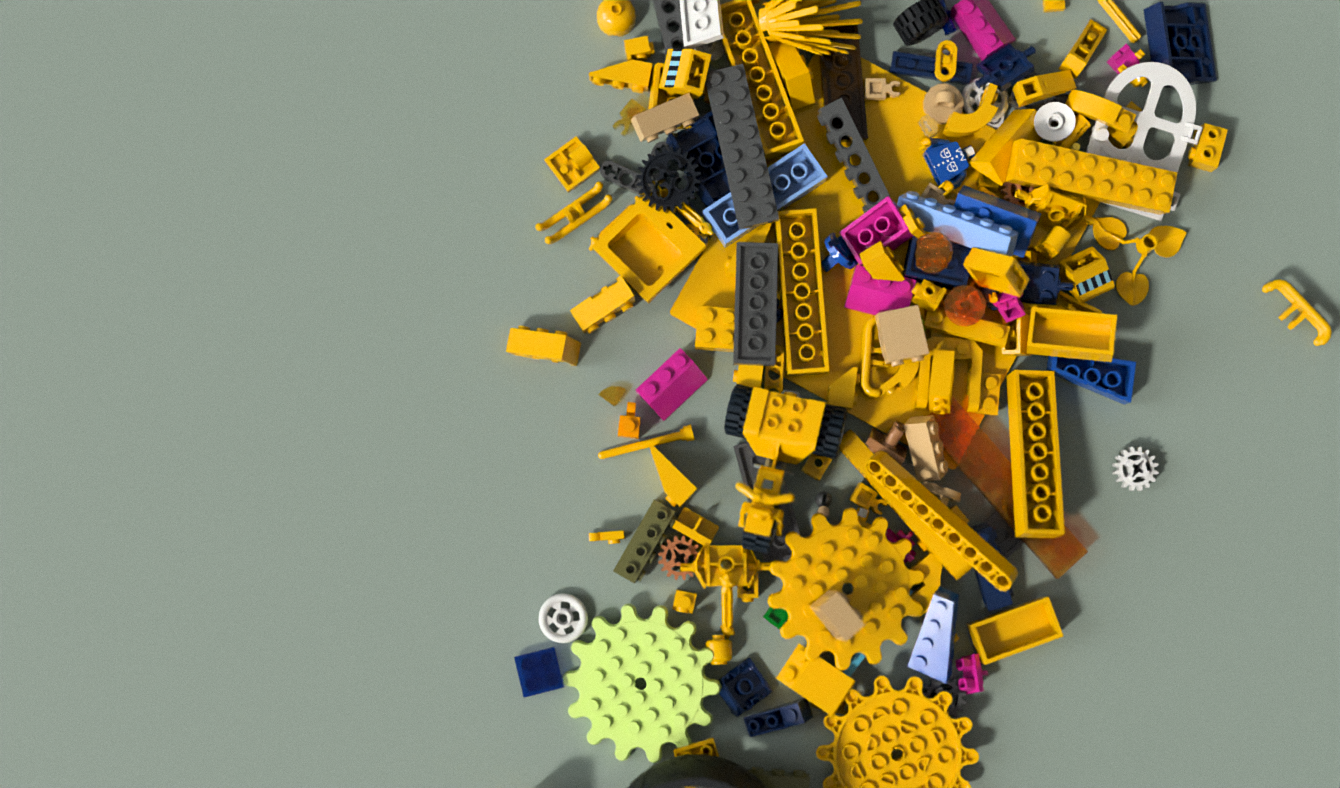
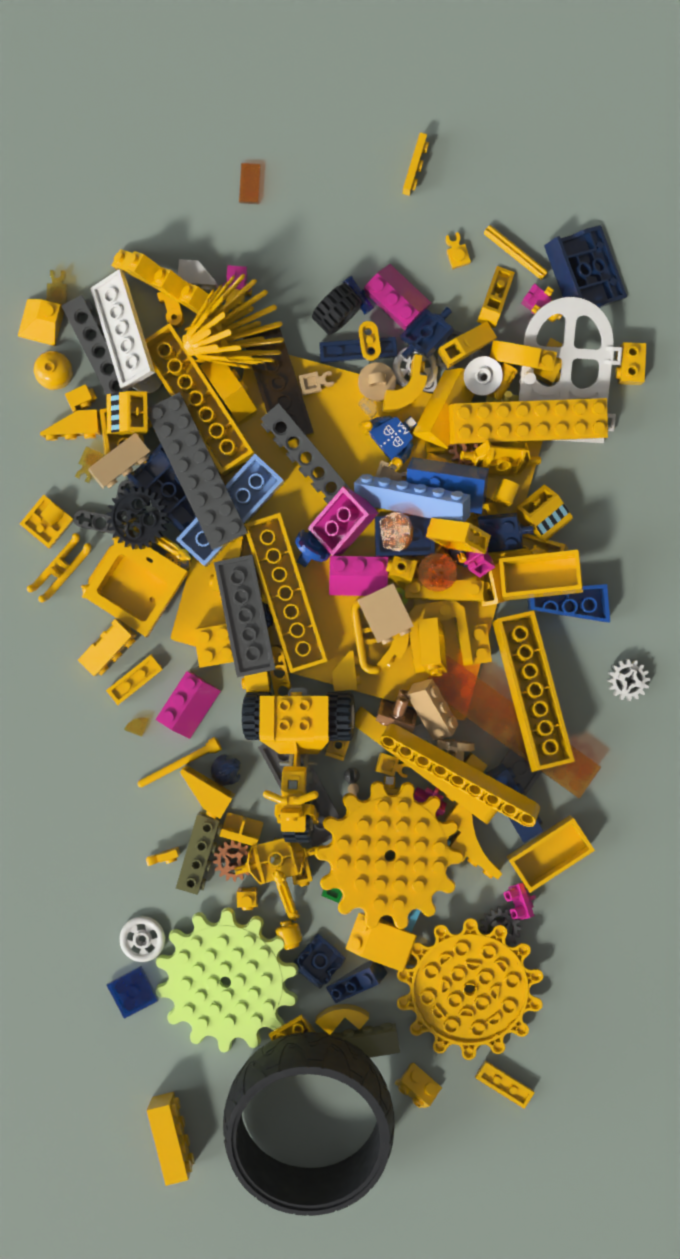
camera: 20 degrees left, 5 degrees up
(543, 345) = (62, 698): yellow wedge -> none
(622, 346) = (134, 679): none -> yellow plate
(629, 425) = (158, 752): light orange brick -> none
(693, 462) = (225, 770): none -> dark blue hair
(744, 749) = (333, 1015): none -> yellow brick
(837, 615) = (384, 887): tan brick -> none
(881, 264) = (352, 551): yellow slope -> none
(914, 224) = (372, 508): yellow plate -> none
(935, 642) = (481, 884): wedge -> none
(1162, 239) = (608, 460): yellow plant -> none

